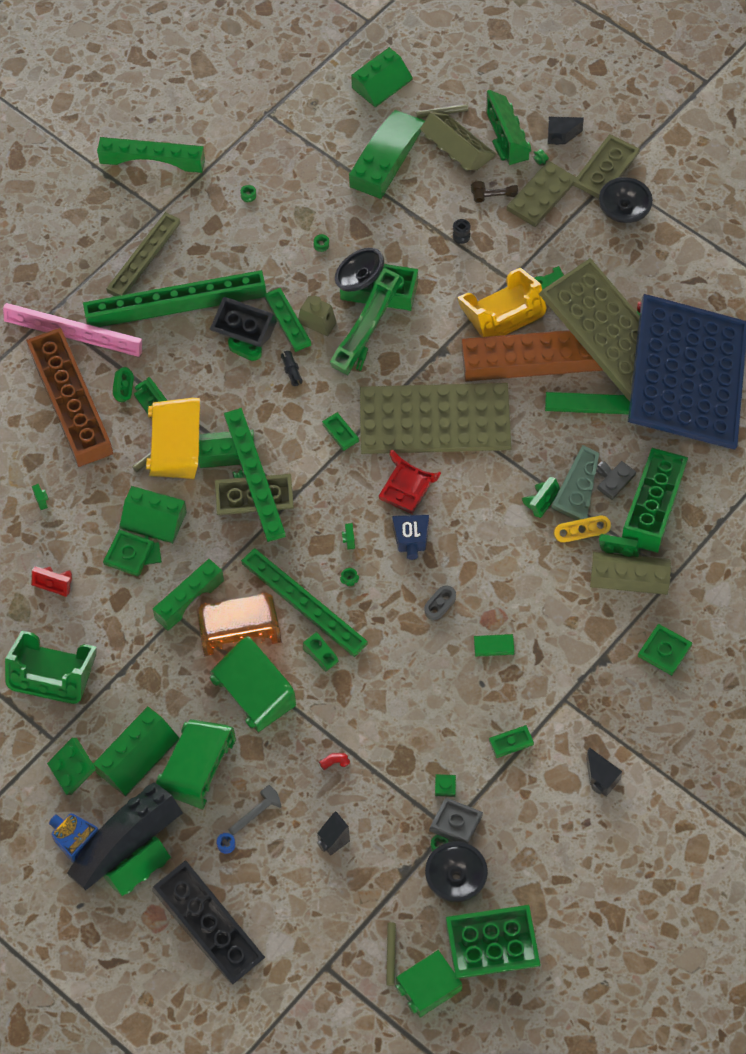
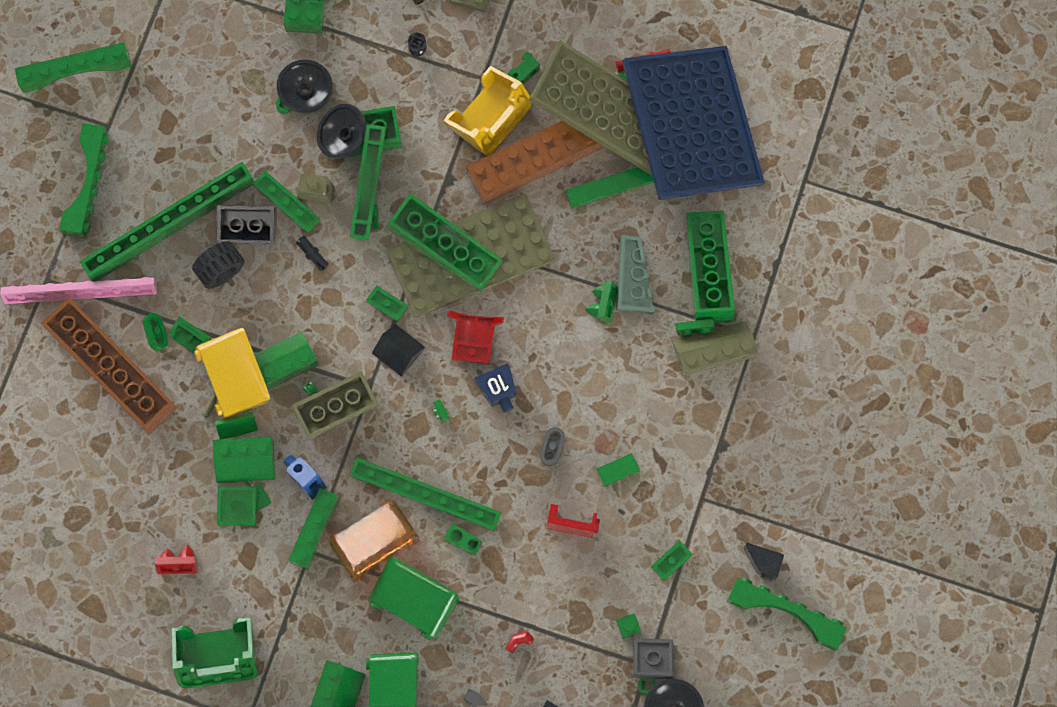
camera: 25 degrees left, 15 degrees up
(41, 496) = (127, 480): green plate -> none
(99, 270) = (76, 217): none -> green arch
(143, 255) = (114, 182): olive plate -> none
(160, 484) = (236, 425): none -> green tile
(199, 540) = (304, 476): none -> blue torso
(202, 345) = (218, 264): none -> black tyre
(243, 349) = (257, 250): green plate -> none
(248, 198) = (187, 80): green bush -> none
(254, 475) = (328, 386): green plate -> none
(332, 473) = (397, 349): none -> black slope
(347, 224) = (301, 76): none -> black dish
(349, 572) = (457, 447): green plate -> none
(412, 392) = (443, 242): none -> green slope
(428, 674) = (571, 526): none -> red panel
(573, 800) = (825, 631): none -> green arch
(589, 525) = (662, 319): yellow plate -> none
(614, 479) = (664, 257): dark grey plate -> none
(665, 649) = (775, 415): green plate -> none

